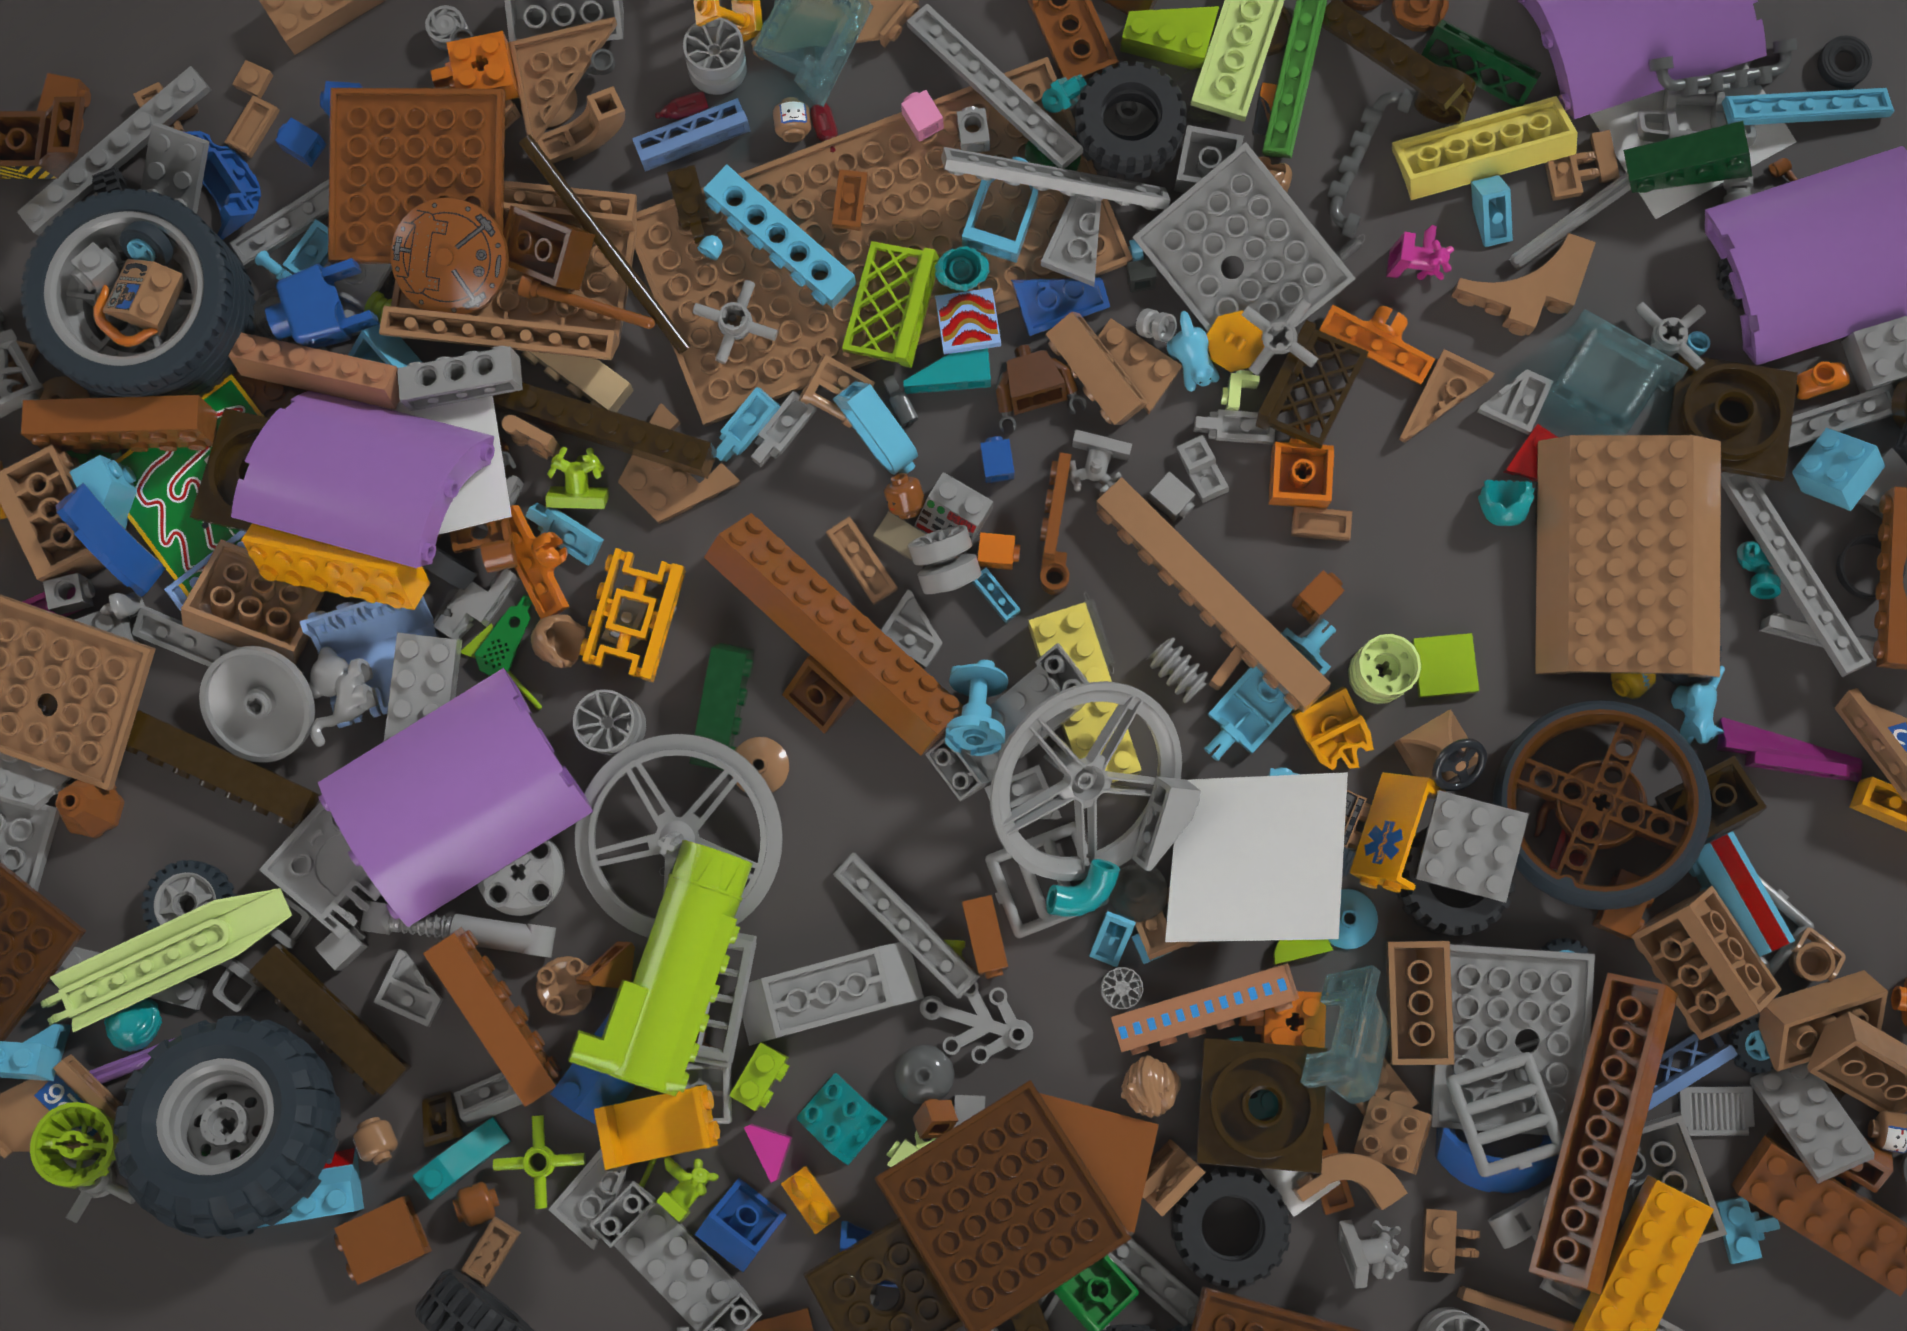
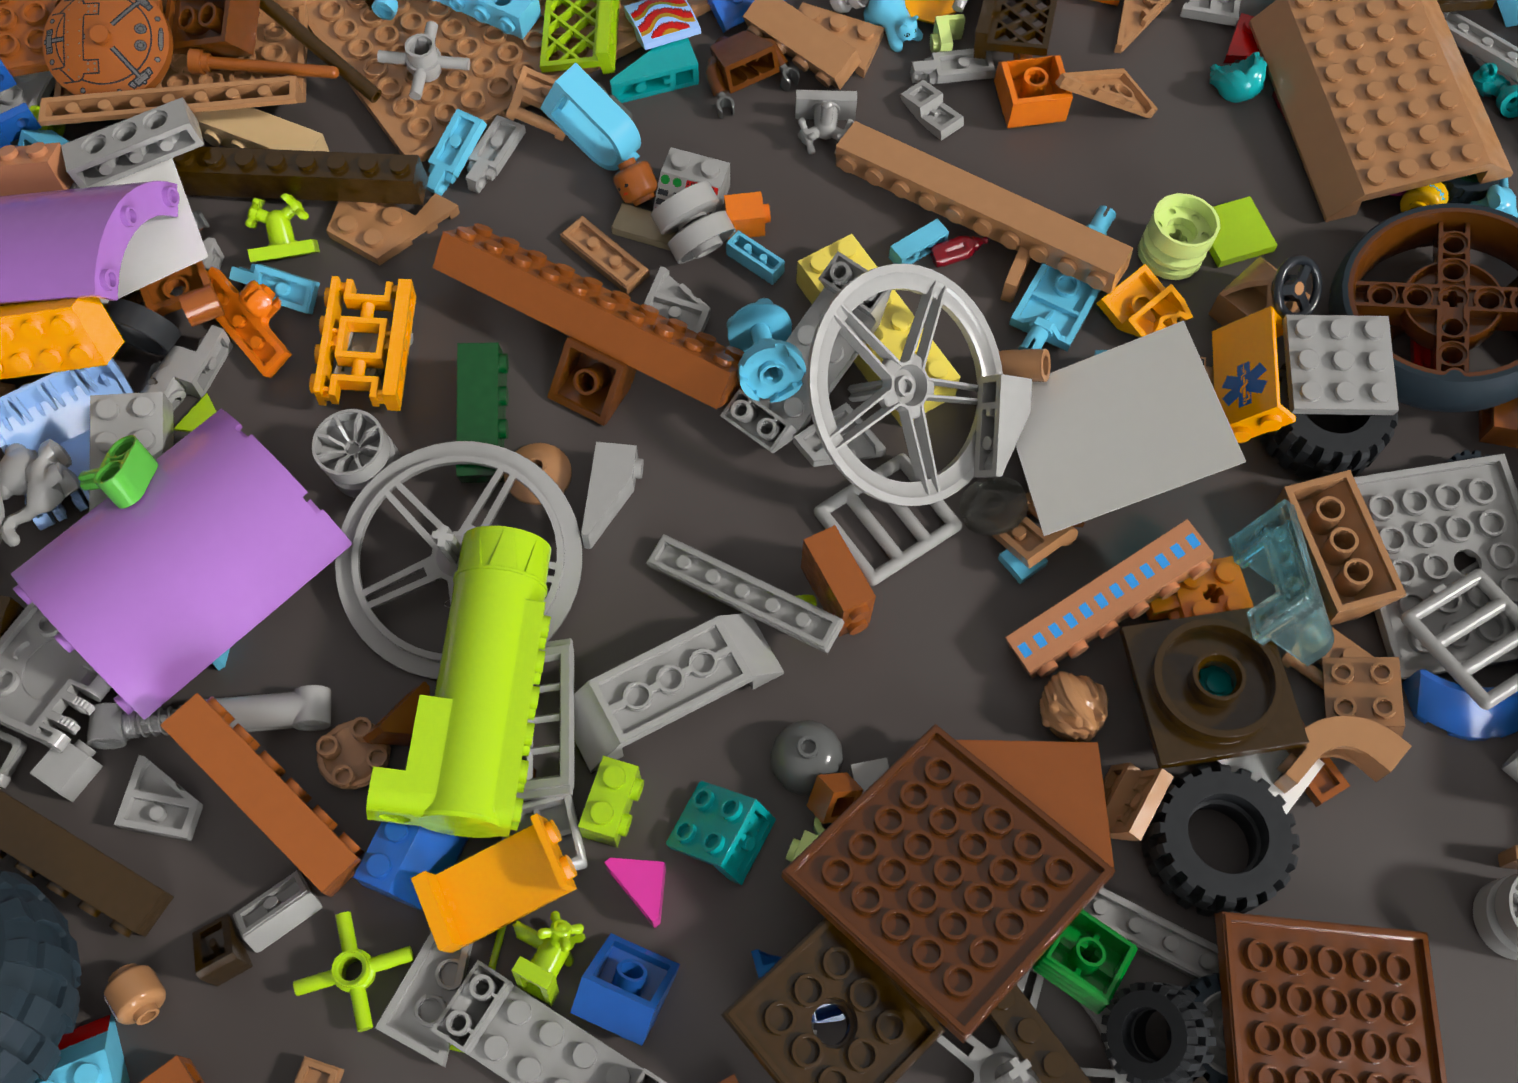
camera: 20 degrees left, 15 degrees down
(418, 720) = (122, 473): none -> bright green beam
(461, 1159) = (250, 993): teal slope -> none
(475, 1204) = (278, 1045): dark orange head -> none
(506, 635) = (223, 397): green piece -> none
(521, 880) = (280, 642): light grey piece -> none
(527, 434) = (230, 192): medium nougat plate -> none
(558, 640) = (282, 387): medium nougat hair -> none
(810, 1199) = (706, 938): light orange tile -> none
(818, 795) = (610, 486): none -> light grey slope
(981, 1023) = (857, 684): light grey plant -> none
(997, 459) = (724, 136): blue brick -> none
(1054, 560) = (798, 187): dark orange hinge -> none
(1086, 896) = (938, 517): teal cylinder -> none
(1112, 938) = (979, 556): medium azure slope -> none
(1121, 988) = (1004, 609): light grey wheel -> none
(1148, 615) = (918, 243): none -> medium azure piece
(1172, 497) = (912, 130): light grey brick -> none
(1178, 669) = (978, 289): light grey piece -> none
(1180, 627) = (956, 249): none -> dark red piece
(1203, 767) = (1026, 363): none -> medium nougat piece
(1295, 949) = (1200, 517): lime tile -> none
(1318, 596) = (1088, 186): dark orange brick -> none
(1321, 523) = (1065, 134): medium nougat tile -> none
(1365, 922) = (1224, 502): medium azure dish -> none
(1373, 1251) = (1387, 836): light grey piece -> none
(1375, 490) = (1109, 87): none -> medium nougat wing
(1440, 1241) = (1457, 805): medium nougat hinge -> none

